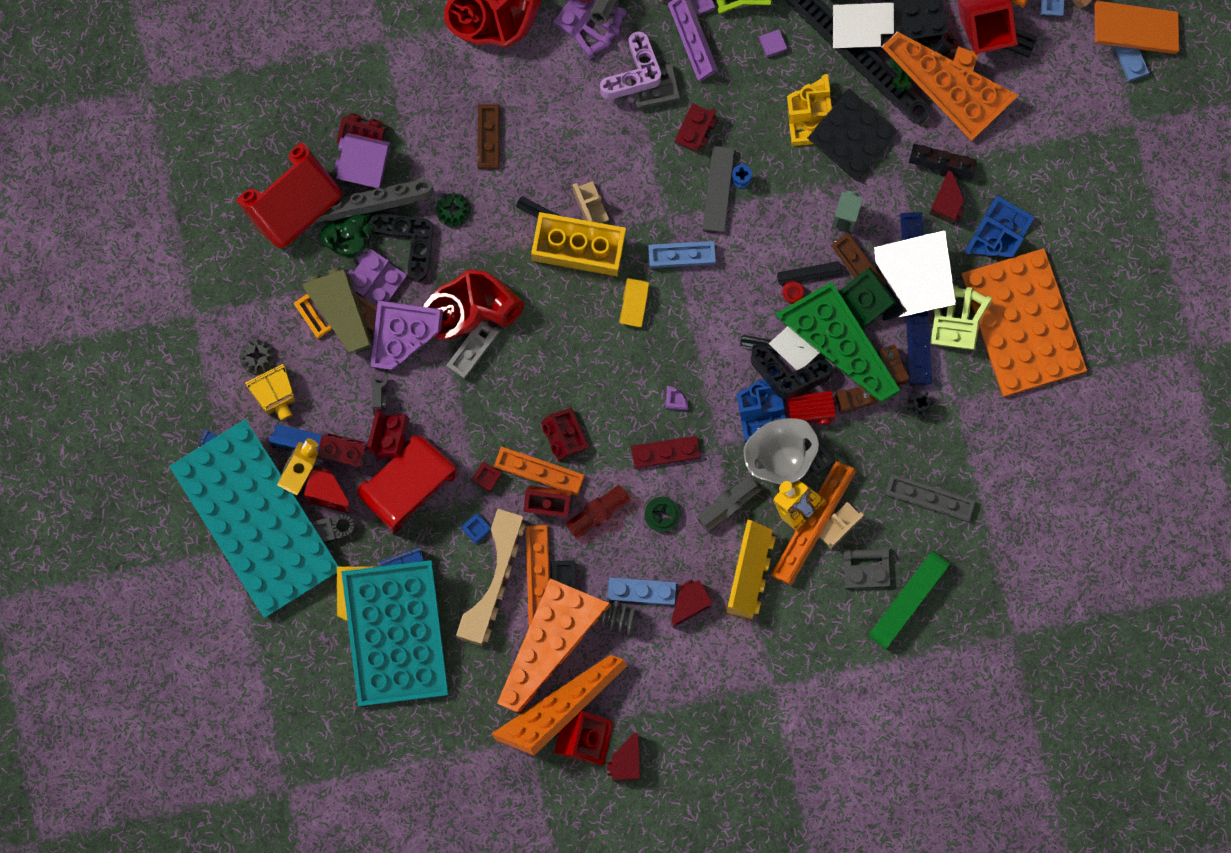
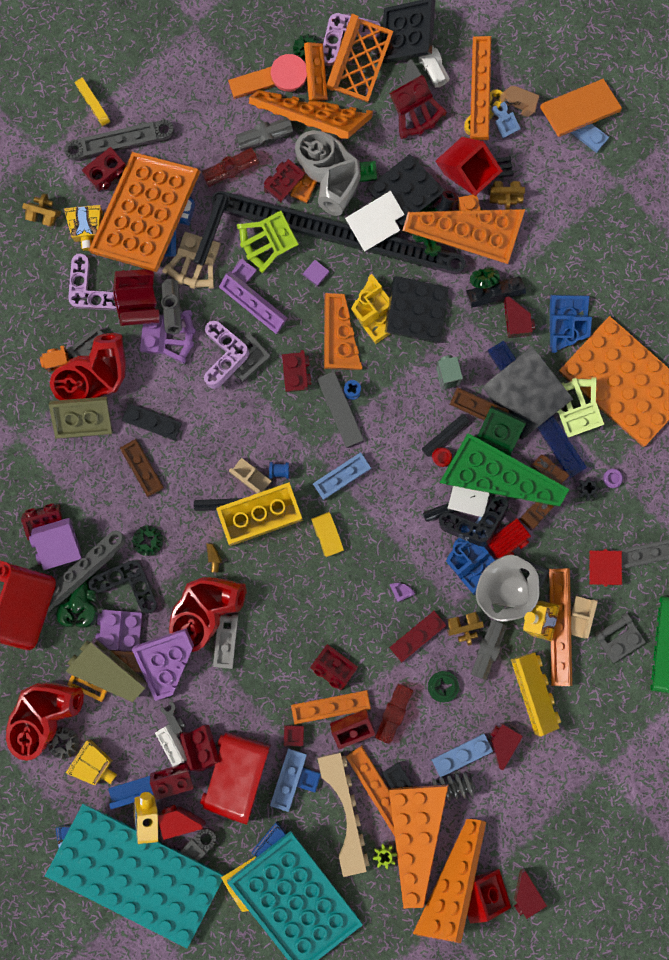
camera: 25 degrees left, 5 degrees up
(247, 313) = (36, 717): none -> red piece
(361, 417) = (171, 745): none -> white plate
(456, 516) = (288, 780): none -> medium blue plate
(457, 53) = (80, 417): none -> olive plate
(508, 262) = (213, 557): none -> pearl gold bar
(514, 643) = (383, 850): none -> lime gear
(524, 97) = (151, 422): none -> black plate
(622, 214) = (279, 470): none -> blue bush
(708, 465) = (473, 623): none -> pearl gold hips
(757, 121) = (339, 340): none -> orange wing
(892, 490) = (605, 567): none -> red piece
(939, 141) = (484, 278): none -> dark green gear
(952, 409) = (612, 478): none -> medium lavender tile
(1011, 73) = (507, 195): none -> pearl gold hips

